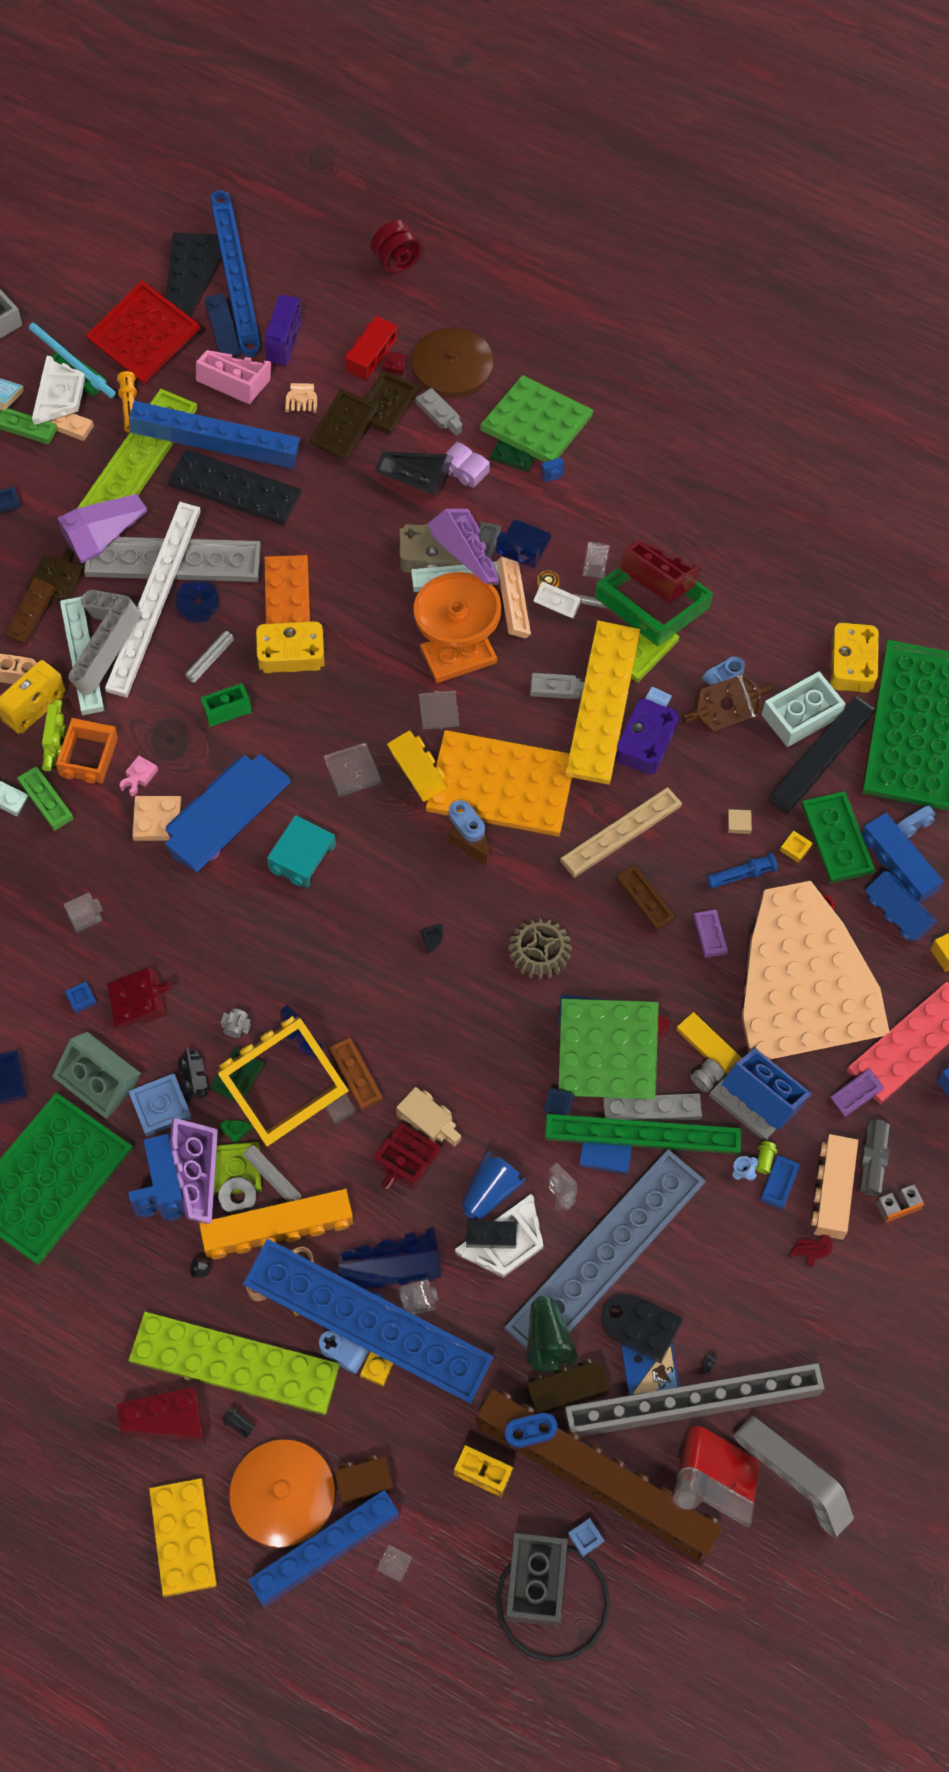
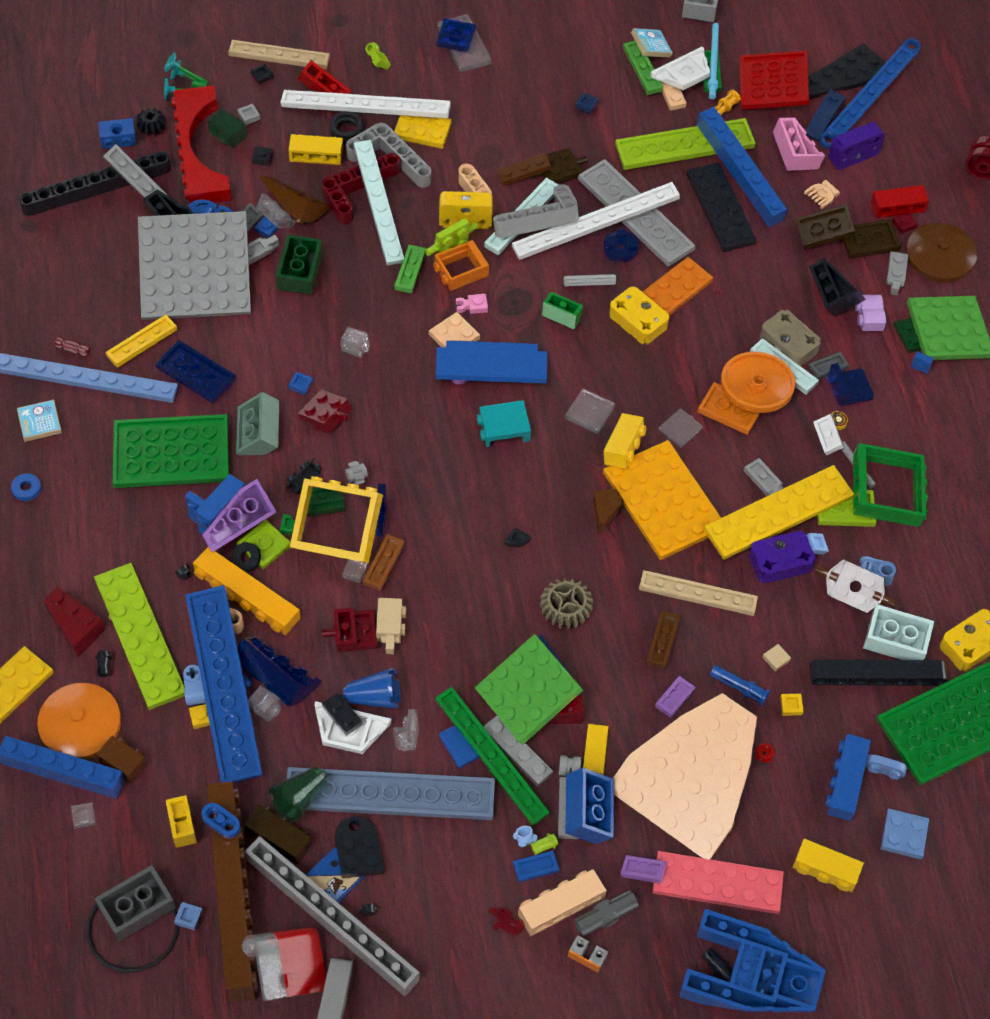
camera: 50 degrees right, 5 degrees down
(96, 525) = (613, 155): medium lavender wedge -> none
(159, 1103) = (270, 472): medium blue plate -> none
(271, 1174) = (275, 564): light grey axle -> none
(459, 535) = (808, 345): medium lavender wedge -> none
(465, 819) = (611, 492): medium blue plate -> none
(513, 597) = (803, 409): light nougat plate -> none
(558, 1102) = (469, 690): dark blue plate -> none
(596, 560) = (882, 434): clear brick -> none
(658, 572) = (903, 472): dark red wedge -> none
(837, 837) = (824, 725): green plate -> none
(900, 906) = (809, 800): blue brick -> none

